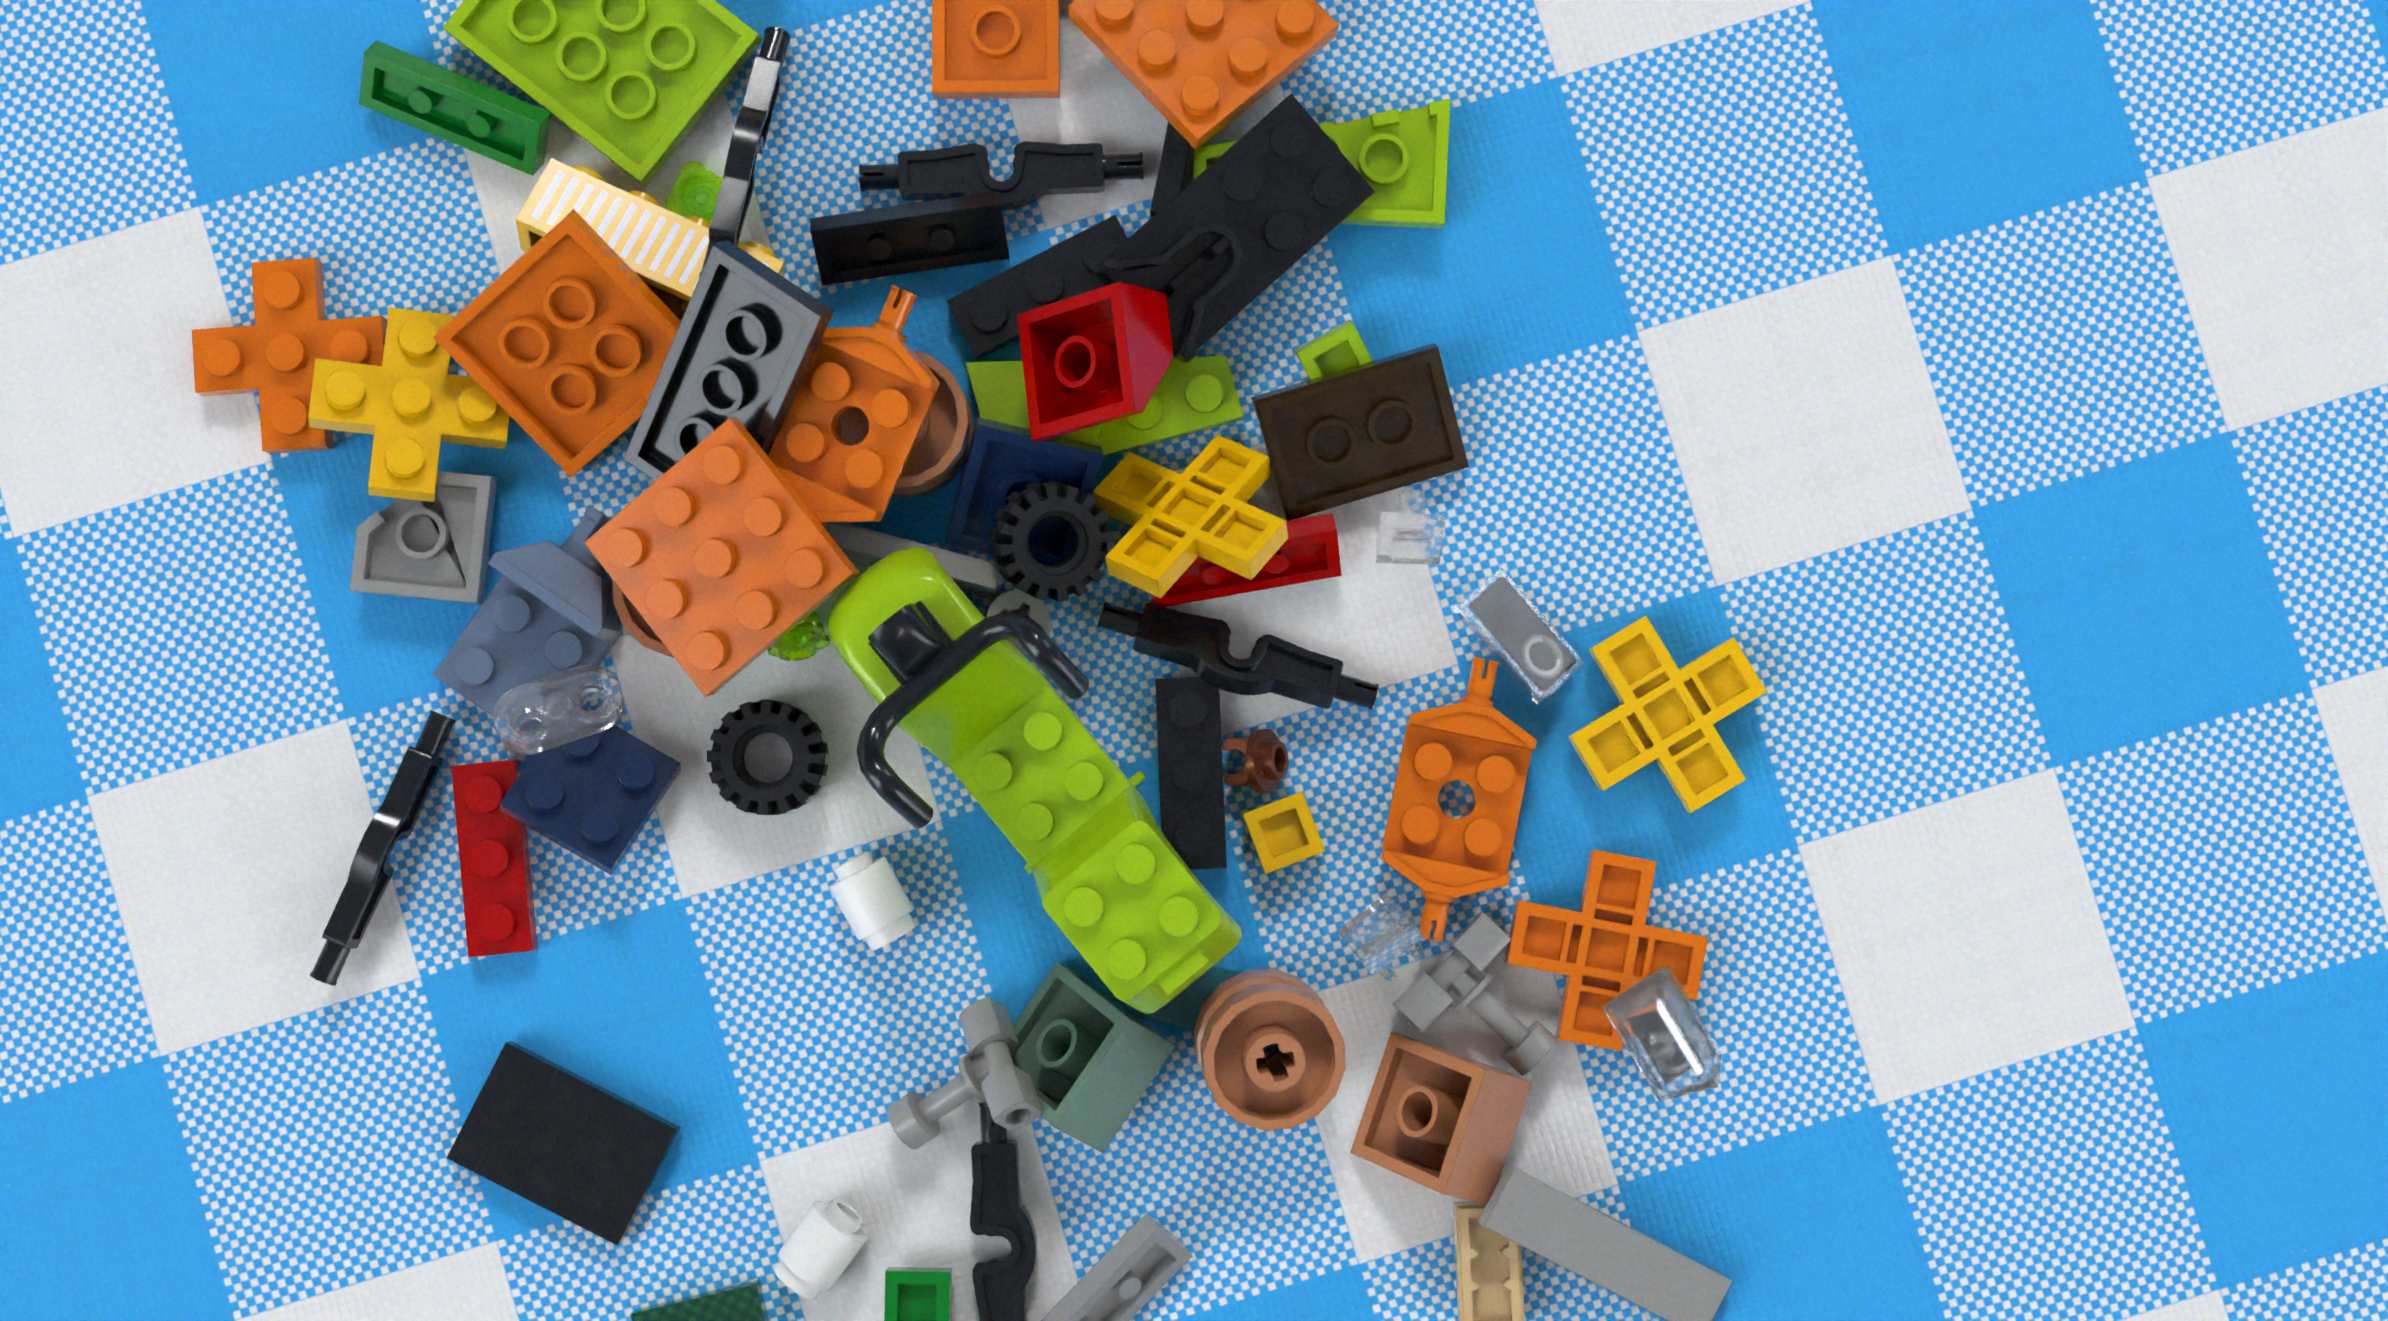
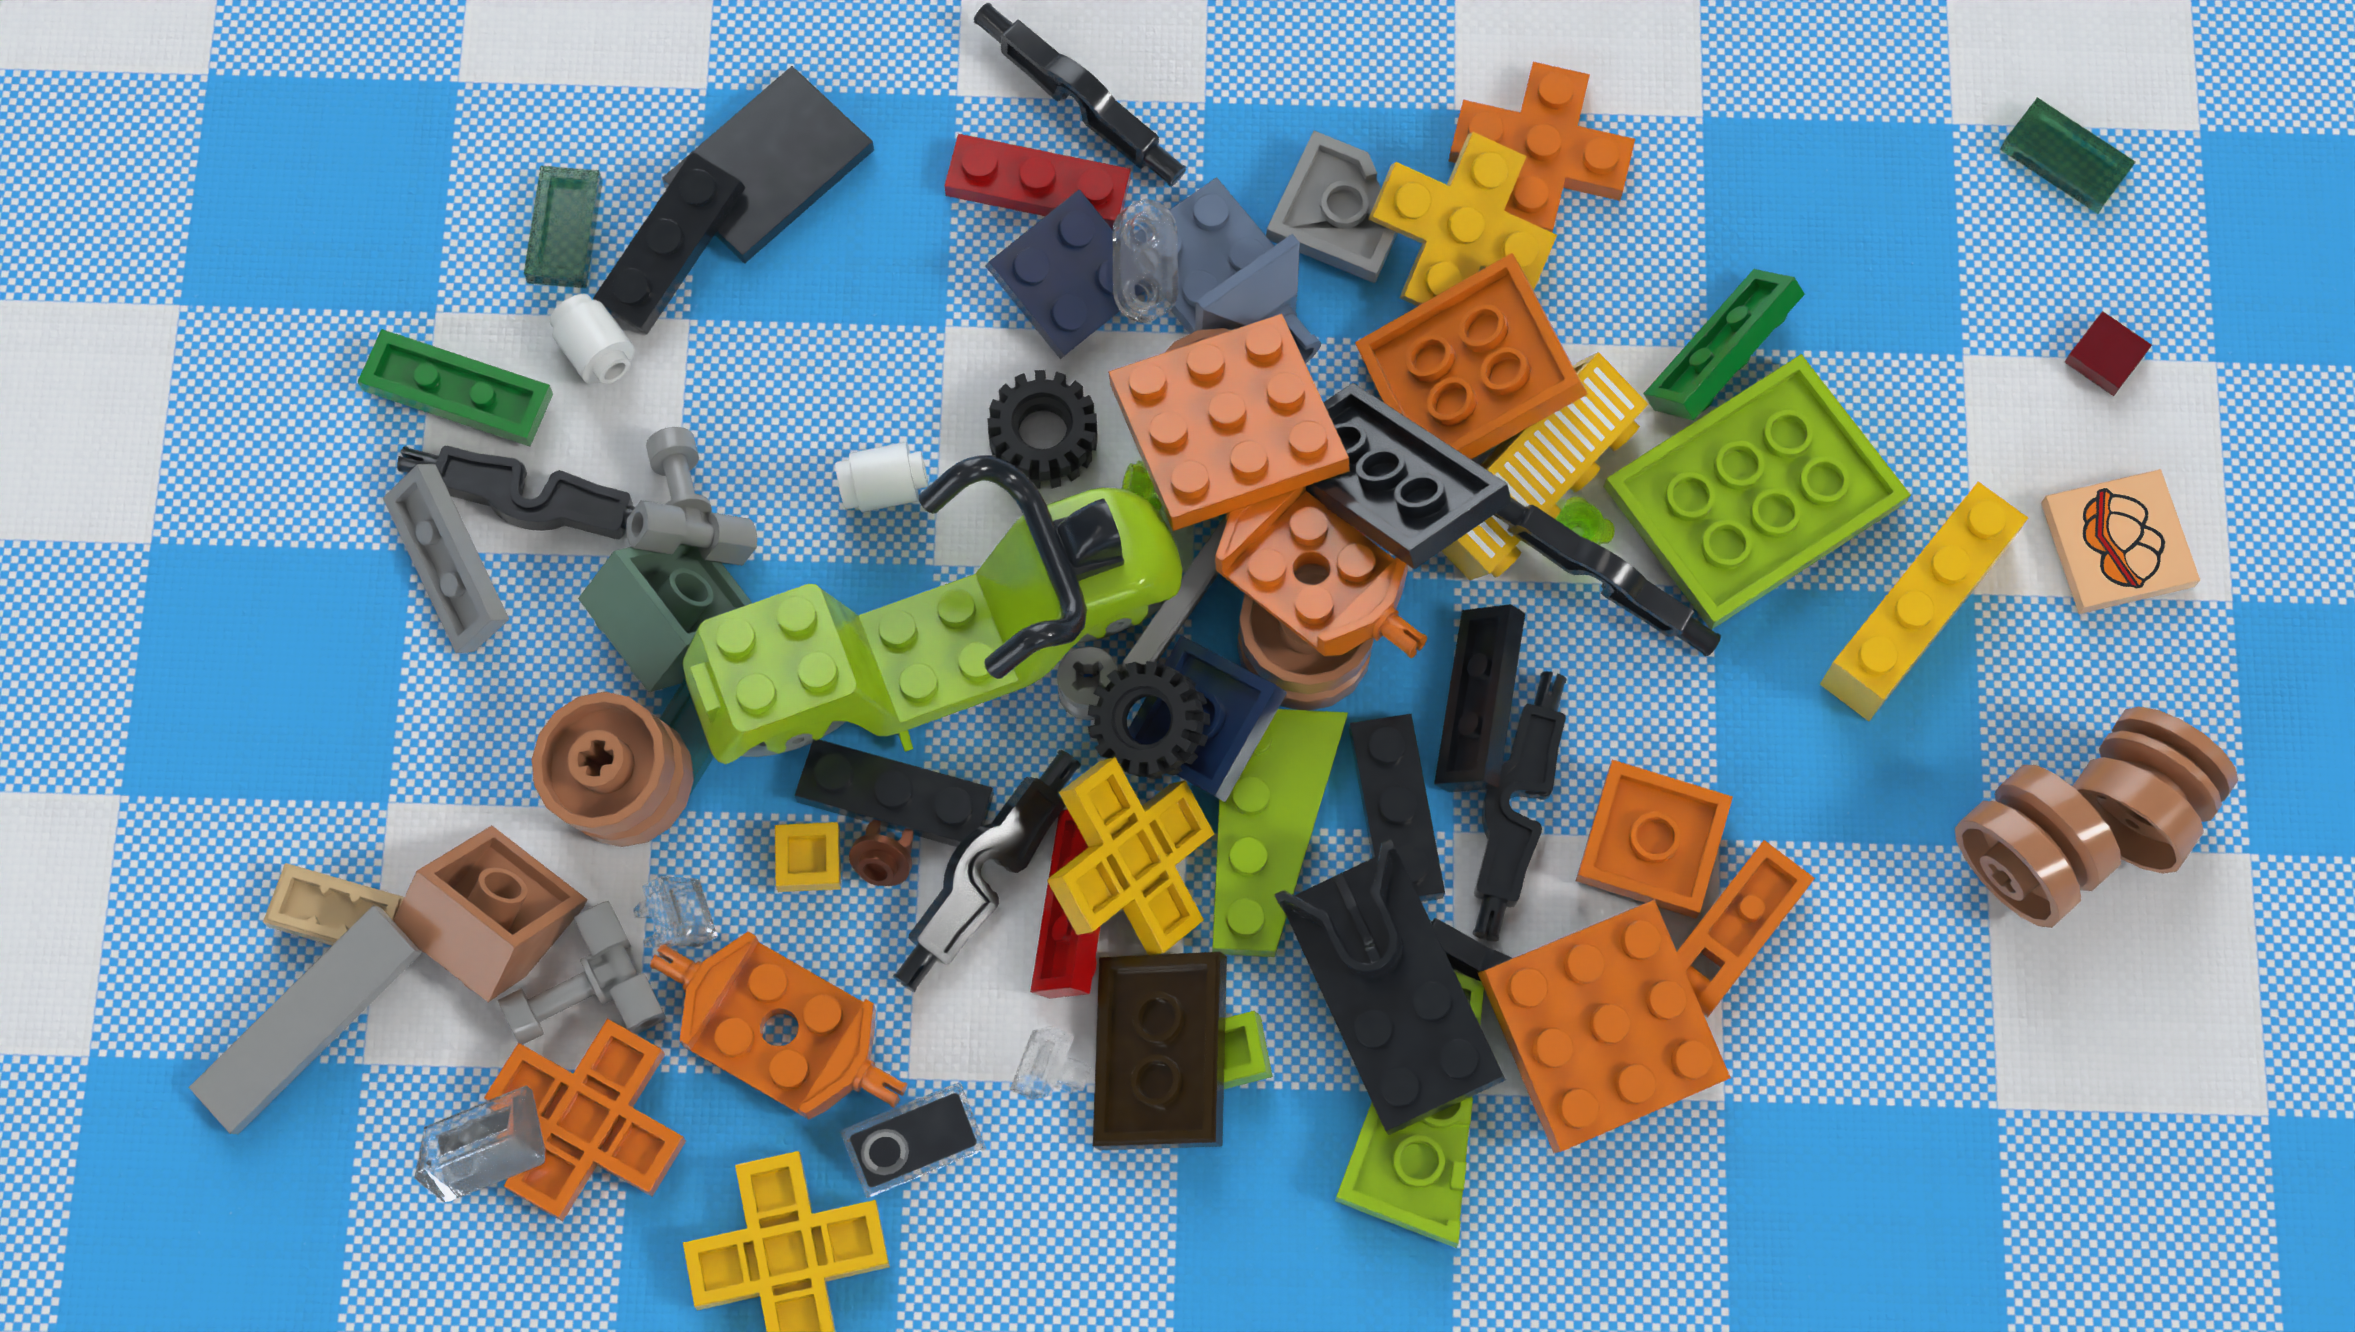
camera: 110 degrees right, 15 degrees down
(688, 1209) = (669, 242): none -> black plate
(1093, 357) = (1303, 806): red slope -> none

